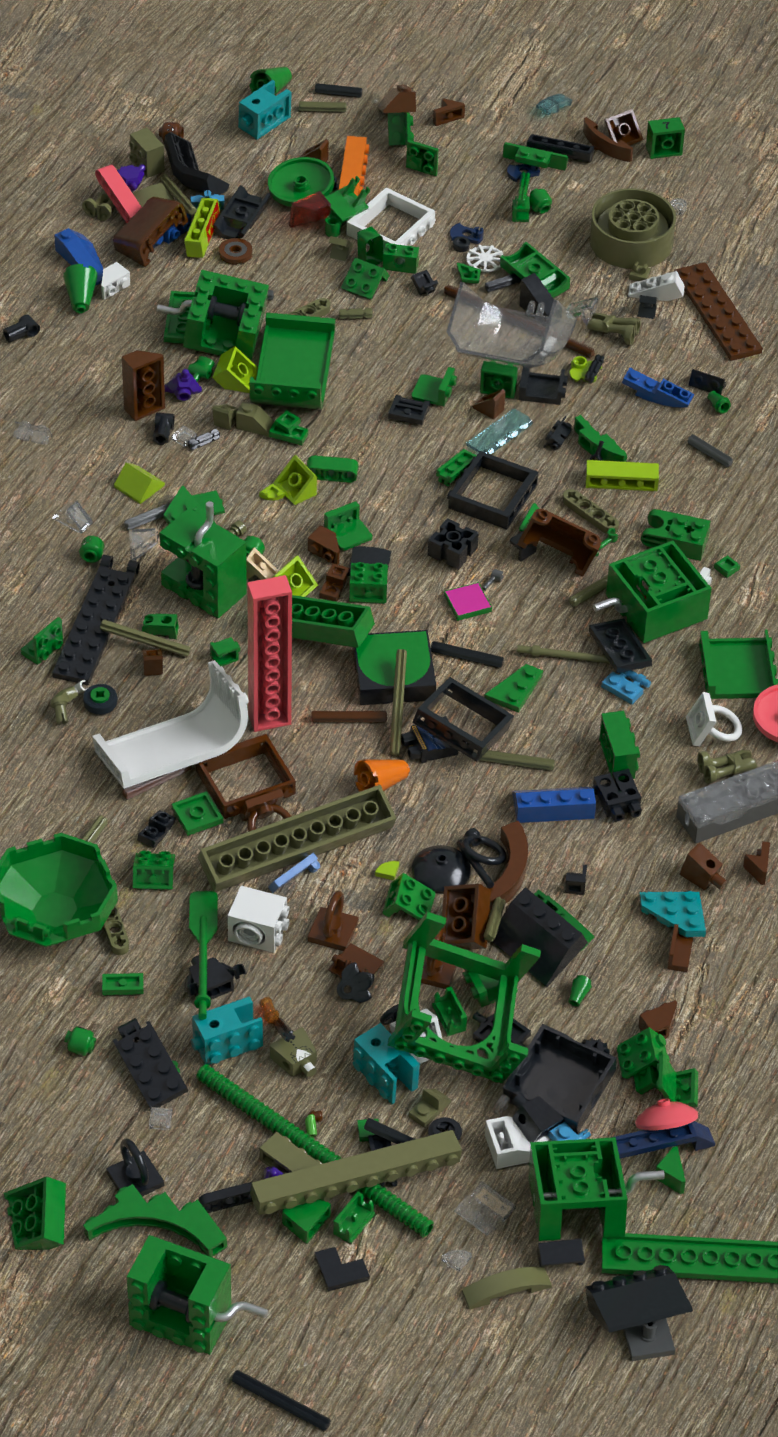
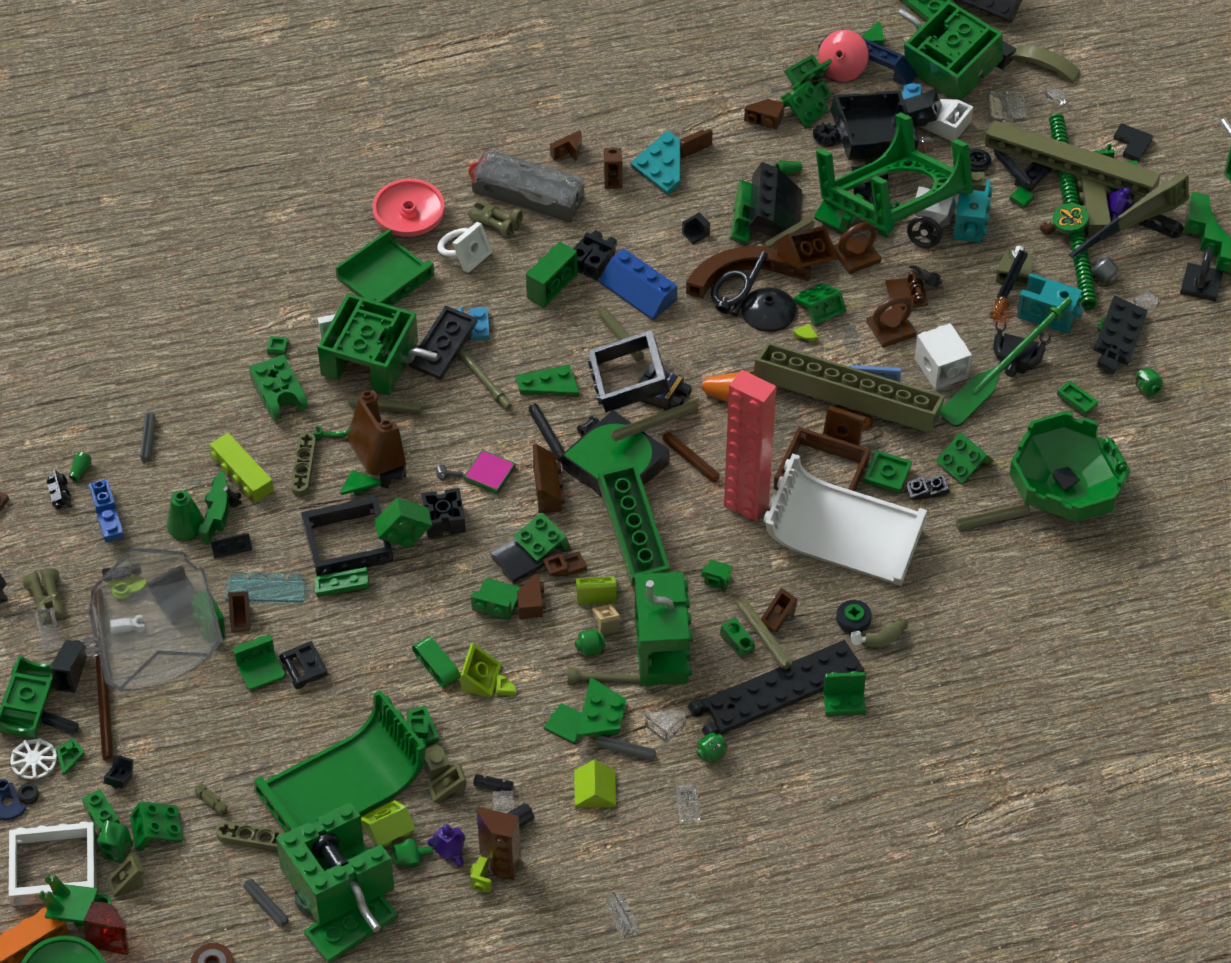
camera: 130 degrees left, 5 degrees up
(58, 902) = (1065, 477): none -> black slope
(221, 1108) = (1104, 269): none -> flat silver head
(240, 1182) = (1162, 199): none -> olive plate
(297, 1122) = (1070, 218): none -> green tile
(417, 611) = (547, 480): none -> reddish brown slope
(441, 676) = (583, 429): none -> black bush
(460, 503) = (403, 522): none -> green brick
(607, 416) = (183, 517): none -> green cone

